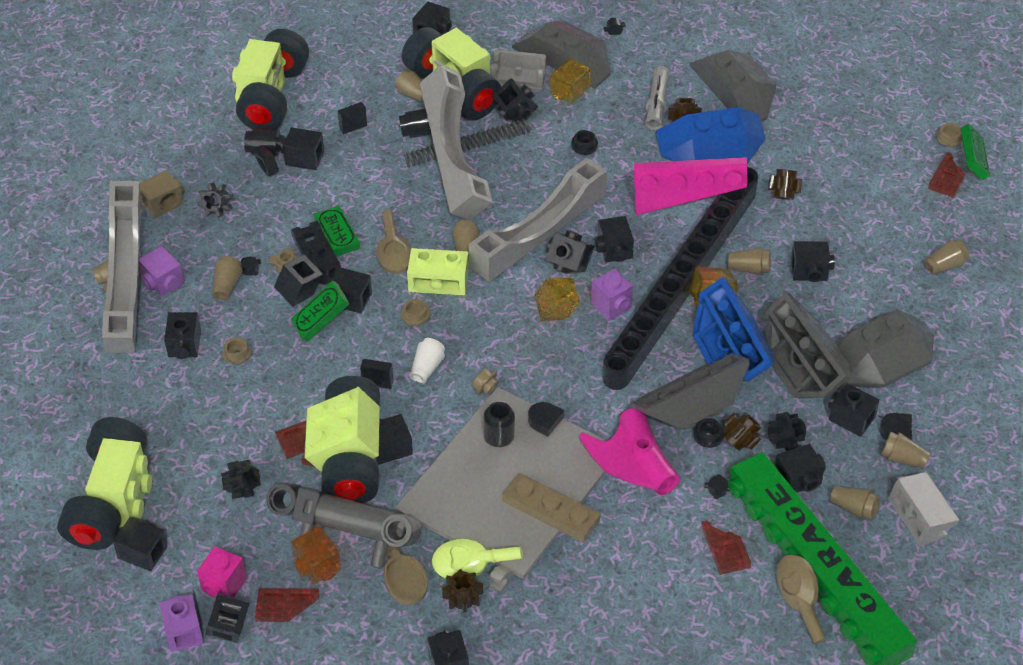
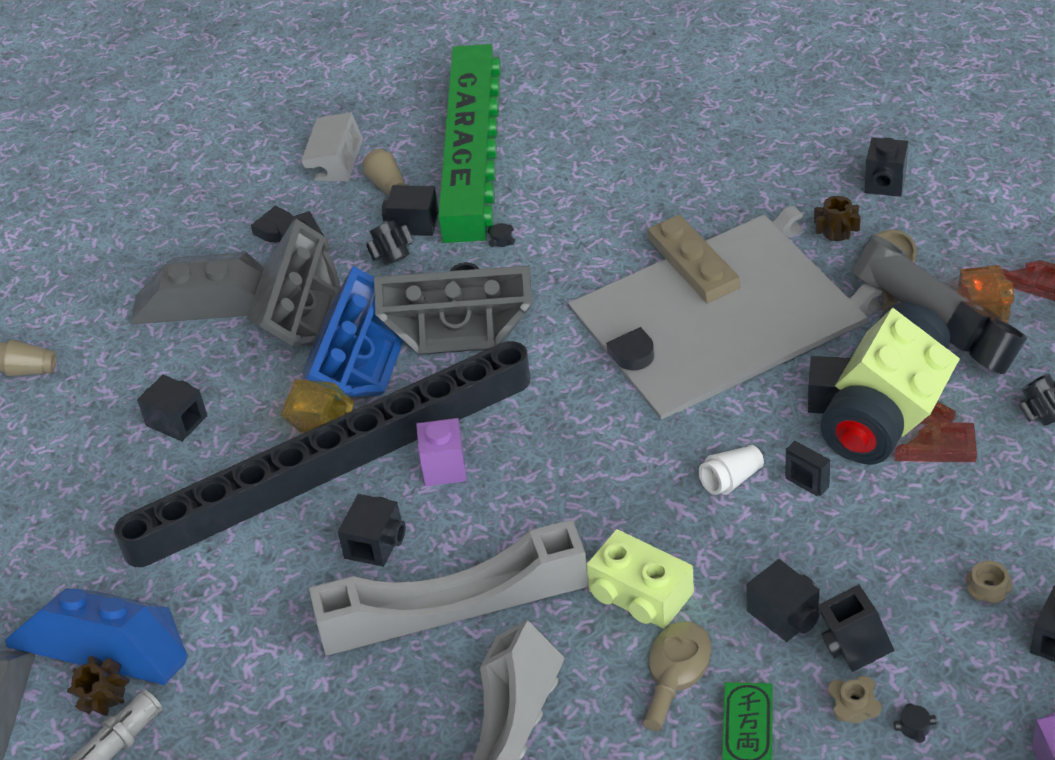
camera: 145 degrees left, 5 degrees down
(226, 276) = (962, 705): dark tan cone -> none
(316, 250) = (797, 698): black plate -> none
(320, 311) = (841, 570): green tile -> none
(415, 312) = (706, 542): dark tan plate -> none
(464, 233) = (568, 617): dark tan cone -> none
(469, 557) = (810, 244): yellowish green piece -> none
(485, 382) = (679, 423): dark tan plate -> none
(499, 424) = (698, 331): black brick -> none
(557, 299) = (516, 462): clear yellow brick -> none
(569, 252) = (447, 525): black brick -> none
(584, 142) = (270, 707): black plate -> none
(633, 454) = (564, 277): dark pink pin -> none
(679, 182) = (261, 544): dark pink wing -> none
(726, 549) = (542, 184): clear red tile -> none
(742, 431) = (433, 255): dark brown gear -> none
(751, 261) = (232, 437): dark tan cone -> none
(785, 184) = (92, 514): dark brown gear -> none
(800, 591) = (507, 121): dark tan piece -> none
(904, 451) = (295, 197): dark tan cone -> none

